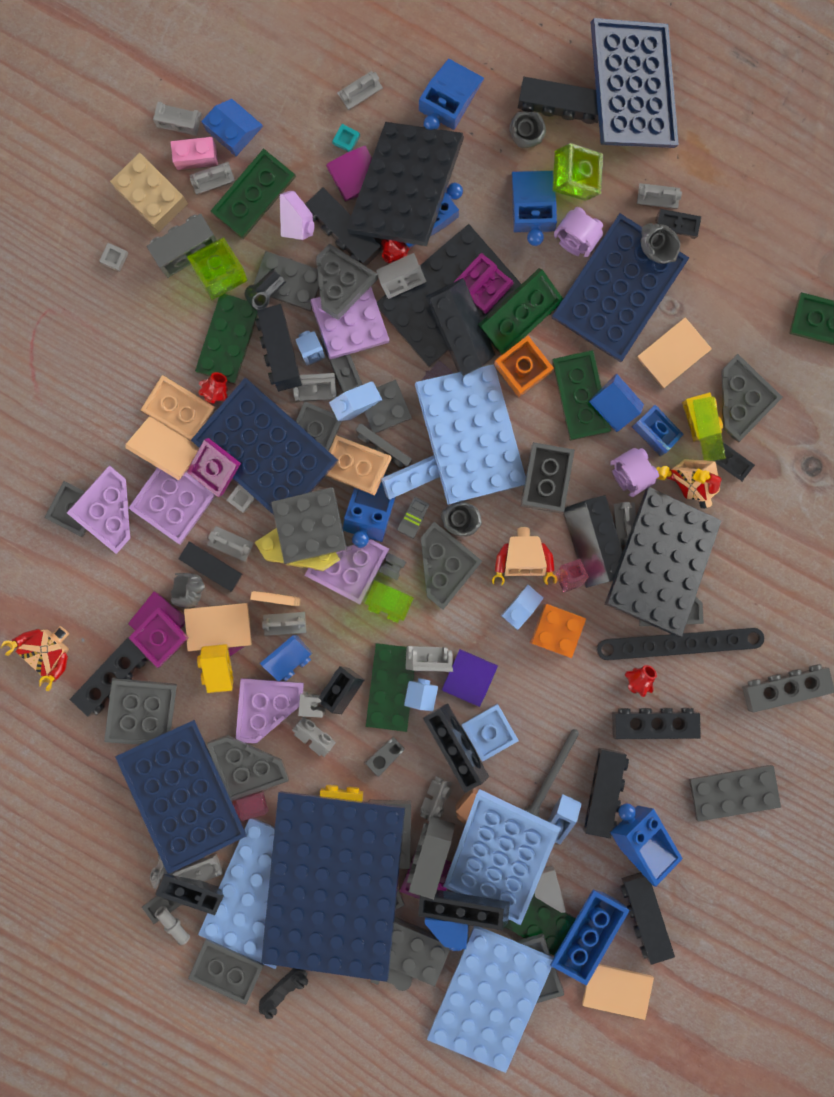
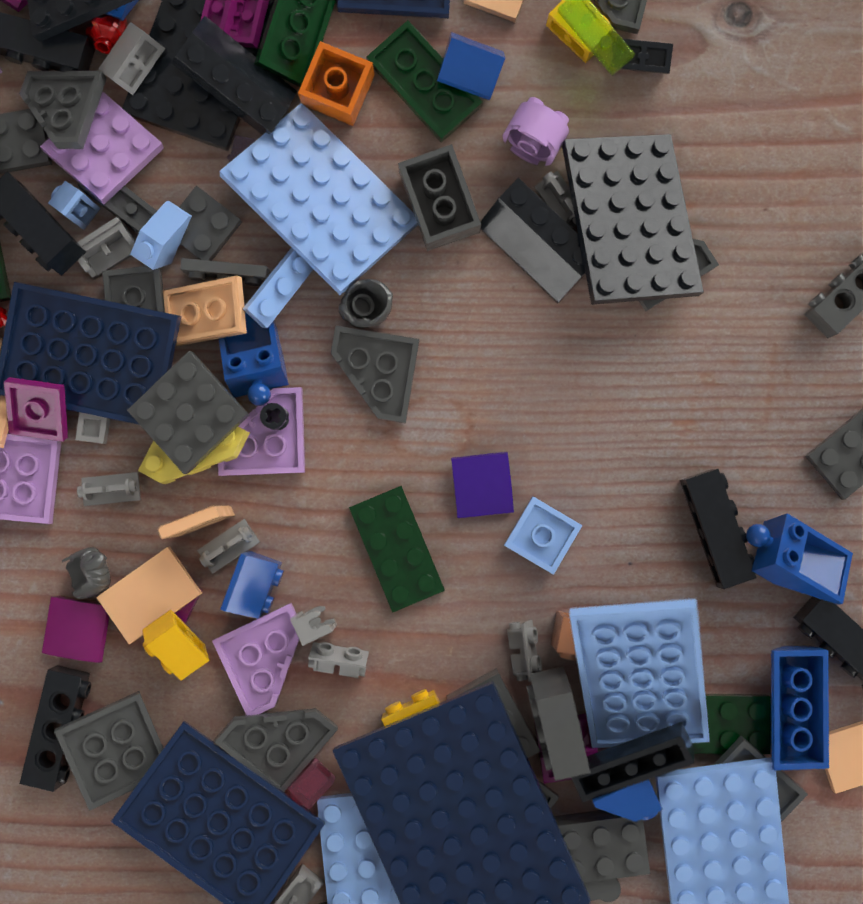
camera: 30 degrees left, 0 degrees up
(158, 637) = (84, 648): magenta plate -> none
(210, 566) = (102, 529): black tile -> none
(340, 690) = (338, 586): black brick -> none
(356, 556) = (266, 418): none -> black bush
(384, 756) = (435, 634): dark grey leg -> none
(389, 601) = (334, 447): clear neon green brick -> none
(392, 566) = (316, 406): dark grey wheel -> none
(413, 518) = (309, 335): dark grey leg -> none
(421, 695) = (436, 537): light blue brick -> none
(429, 659) = (421, 489): light grey hinge -> none
(456, 748) = (513, 576): black brick -> none
(522, 607) = (496, 367): light blue slope -> none
(525, 557) = (466, 305): light nougat torso -> none
(534, 808) = (644, 542): dark grey piece -> none
(549, 890) = (720, 681): light grey slope -> none
(558, 630) = (554, 369): orange brick -> none
(564, 816) = (686, 580): light blue slope -> none
(571, 575) = (533, 295): clear pink brick -> none
(641, 680) = (685, 371): red rock -> none
(657, 430) = (536, 73): blue slope -> none
(687, 644) = (703, 307): black plate -> none
(689, 728) = (772, 396): black brick -> none
(695, 478) = (613, 101): torso -> none

